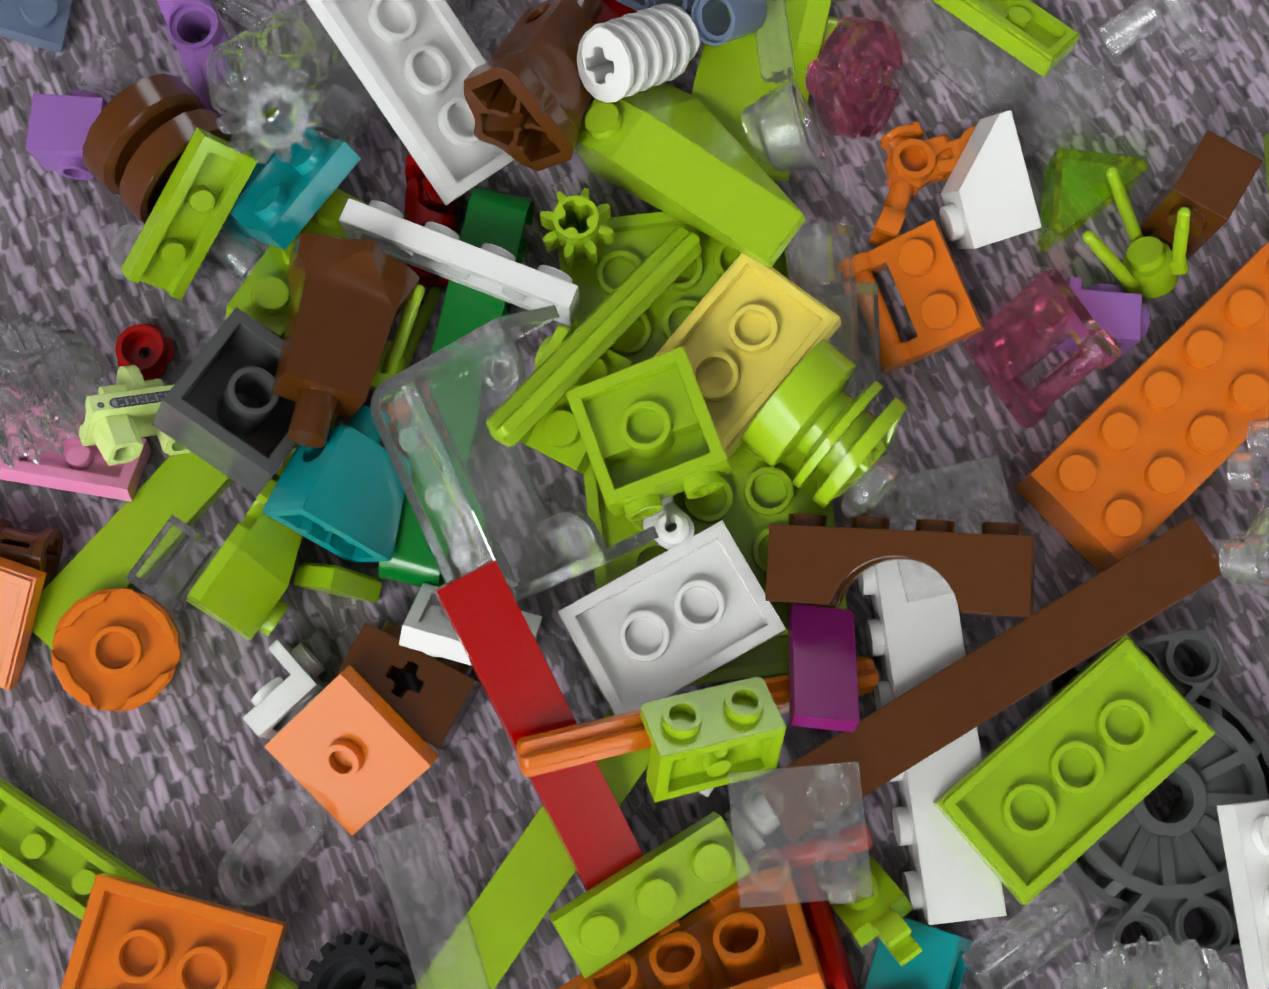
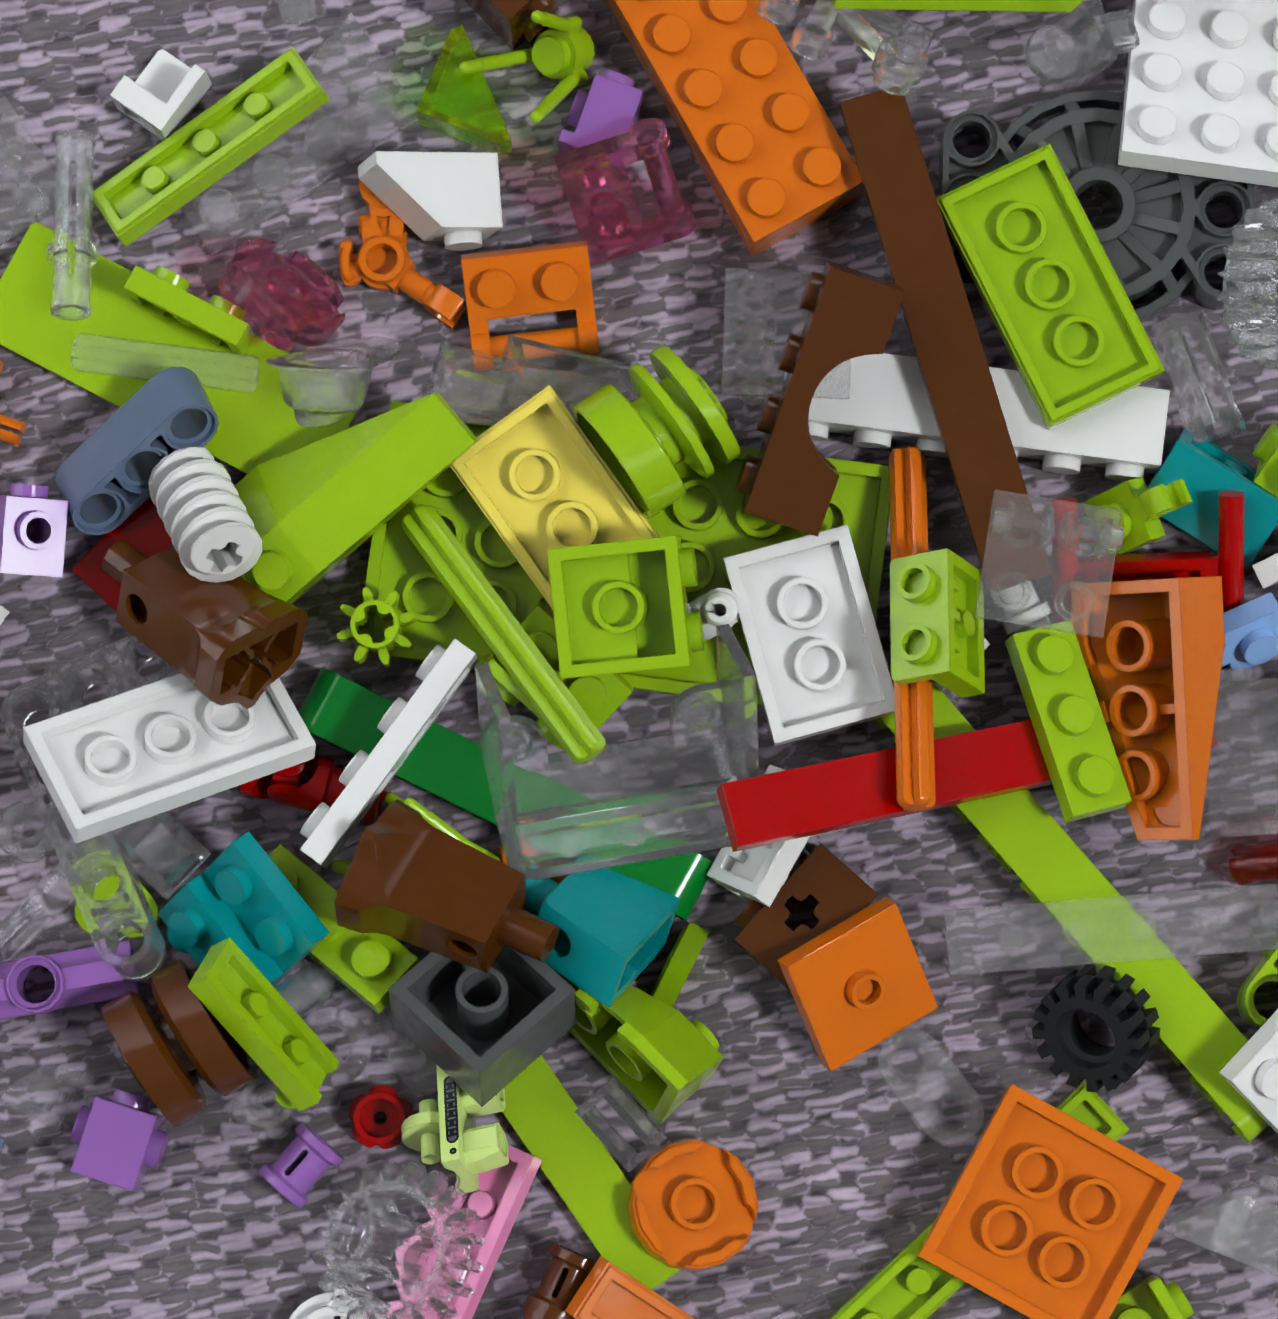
camera: 75 degrees left, 5 degrees up
(85, 292) = (301, 1165): none -> medium lavender bush
(283, 699) = (788, 1047): white bracket -> none
(288, 95) = (185, 909): clear gear -> none
(822, 668) = (895, 499): magenta tile -> none
(873, 487) = (734, 400): clear piece -> none

